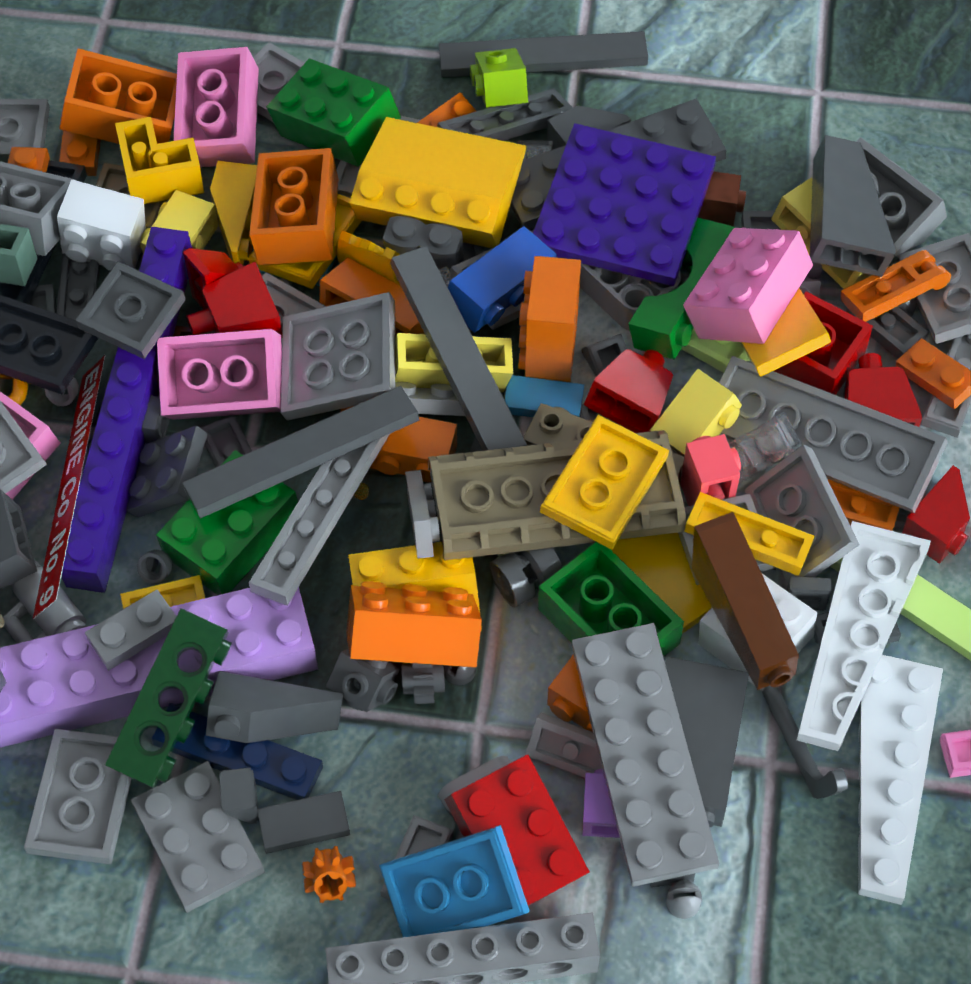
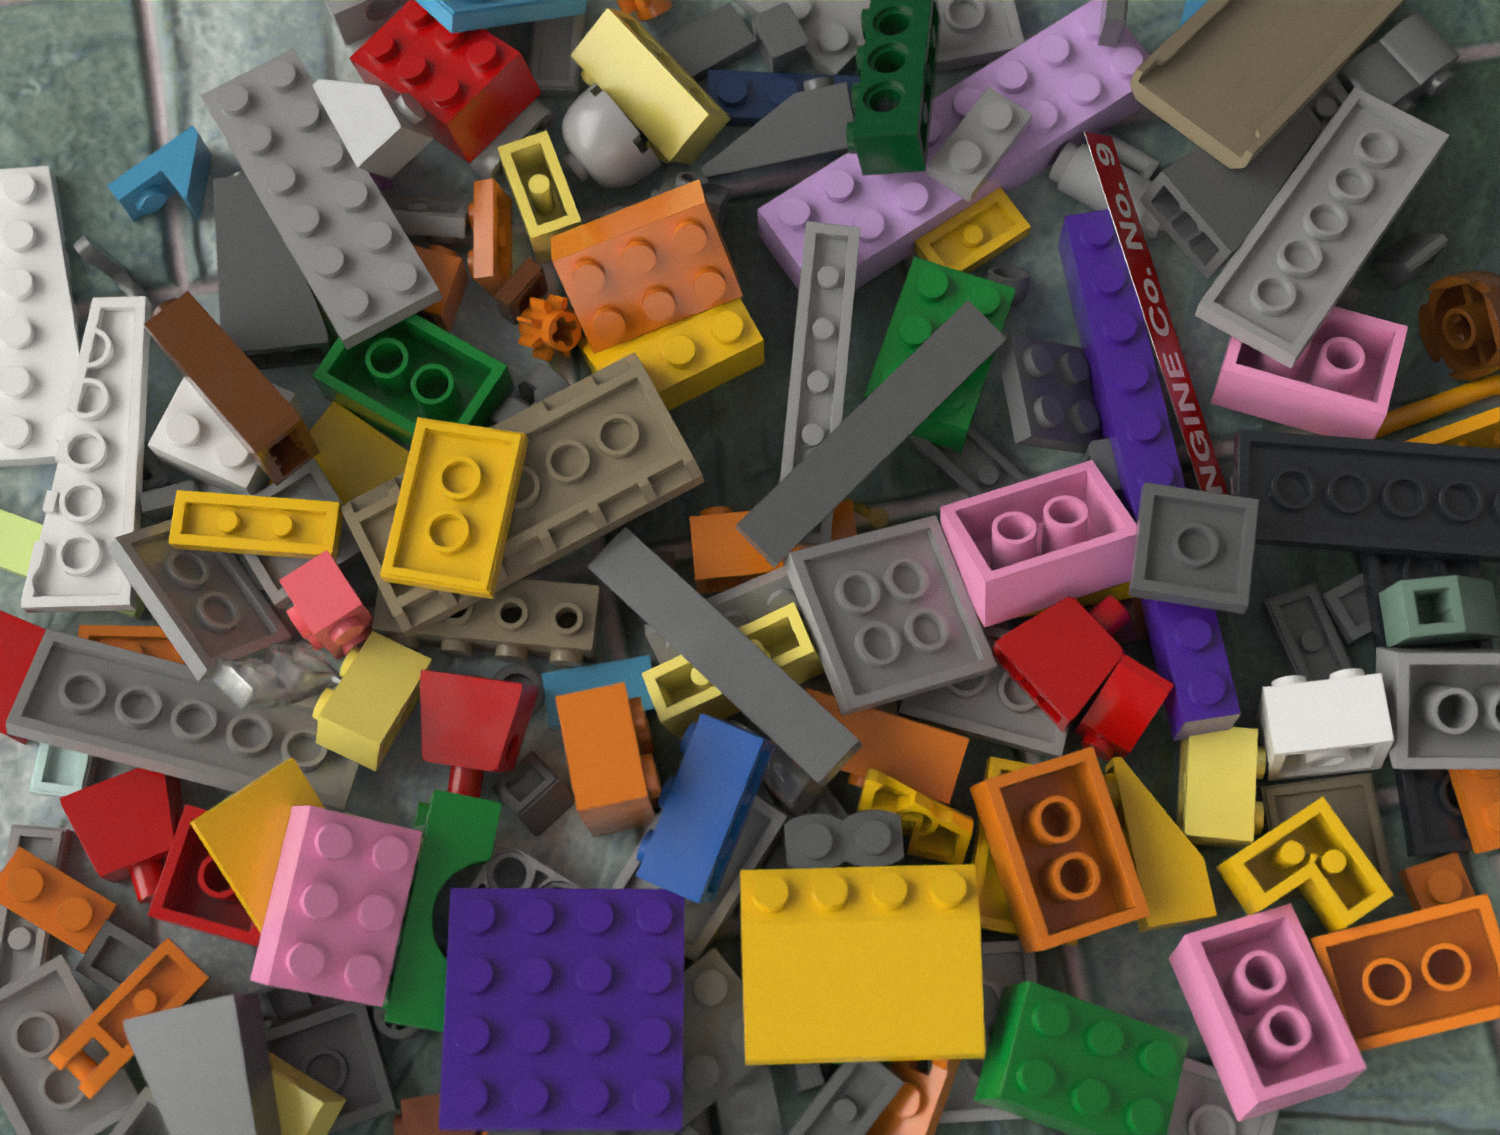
camera: 165 degrees right, 15 degrees up
(356, 785) = (649, 87): none -> light yellow brick
(407, 746) = (605, 143): none -> light grey cylinder
(422, 514) = (672, 378): light grey plate -> none
(470, 720) = (539, 191): none -> light yellow brick
(500, 630) = (549, 328): none -> orange gear
(510, 665) = (515, 294): none -> reddish brown tile
(516, 727) = (492, 235): none -> orange plate
(584, 783) = (375, 124): none -> slope
(756, 846) = (174, 168): none -> dark azure slope

